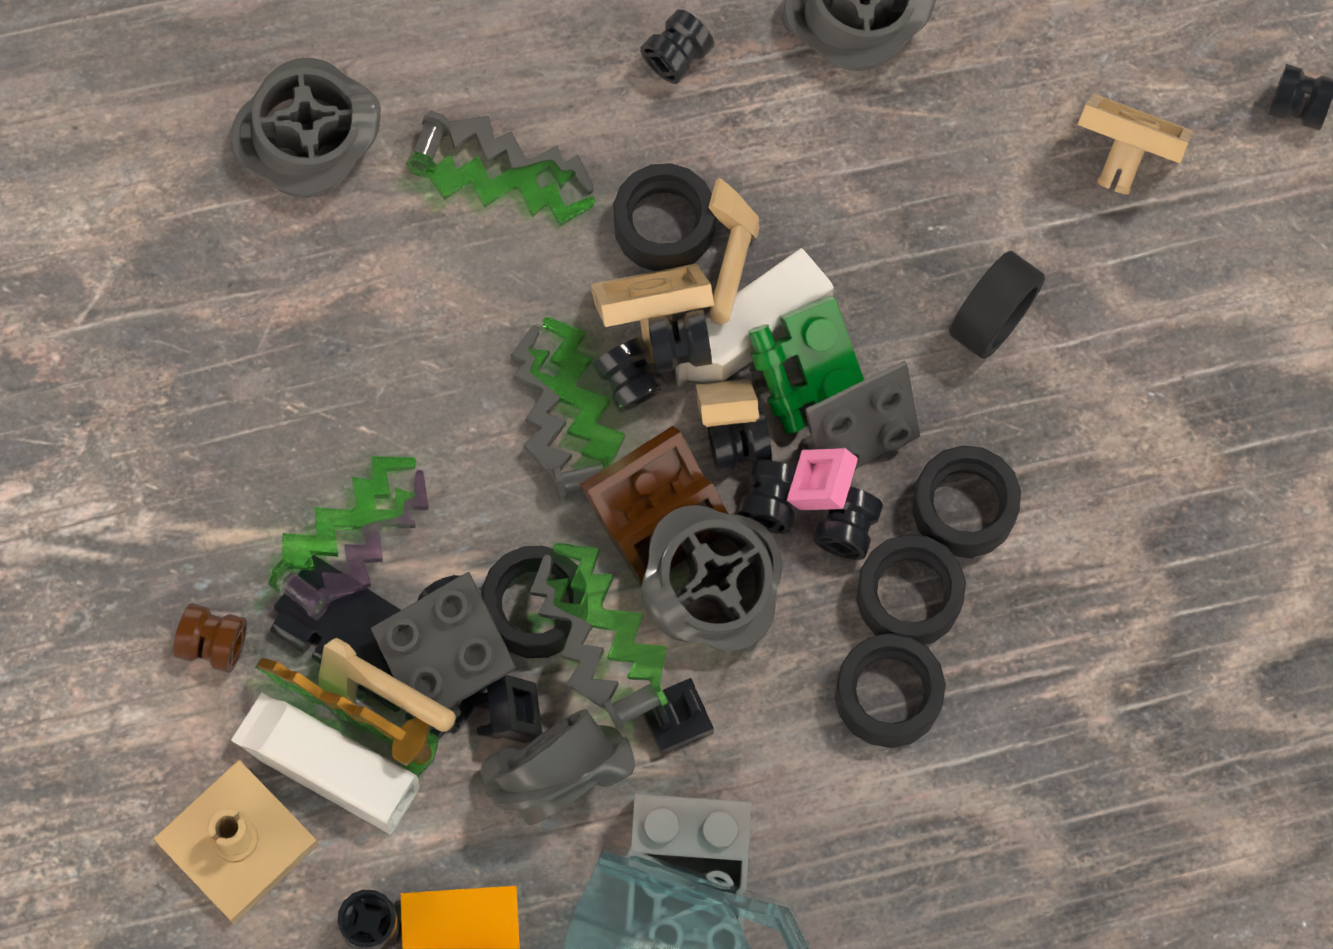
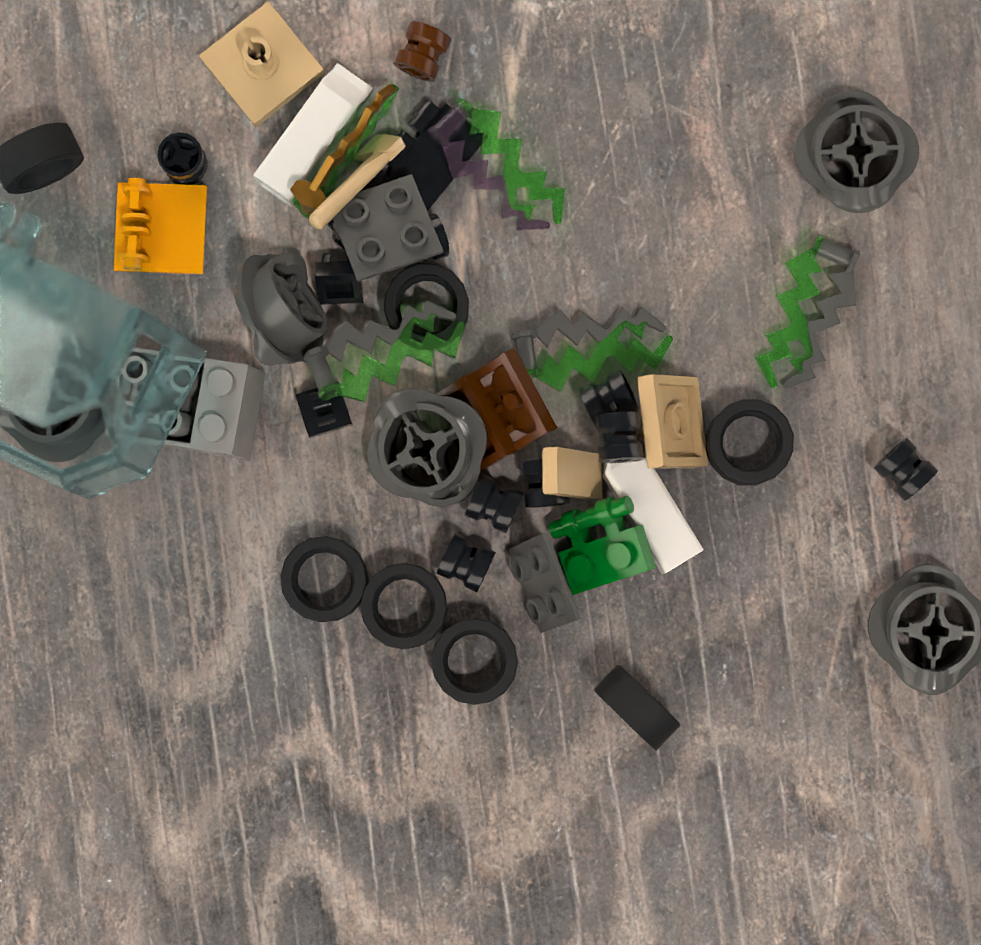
camera: 95 degrees right, 15 degrees up
(744, 227) = (739, 507): tan piece -> none
(822, 479) = (495, 542): bright pink plate -> none
(1133, 135) = (782, 846): tan tile -> none

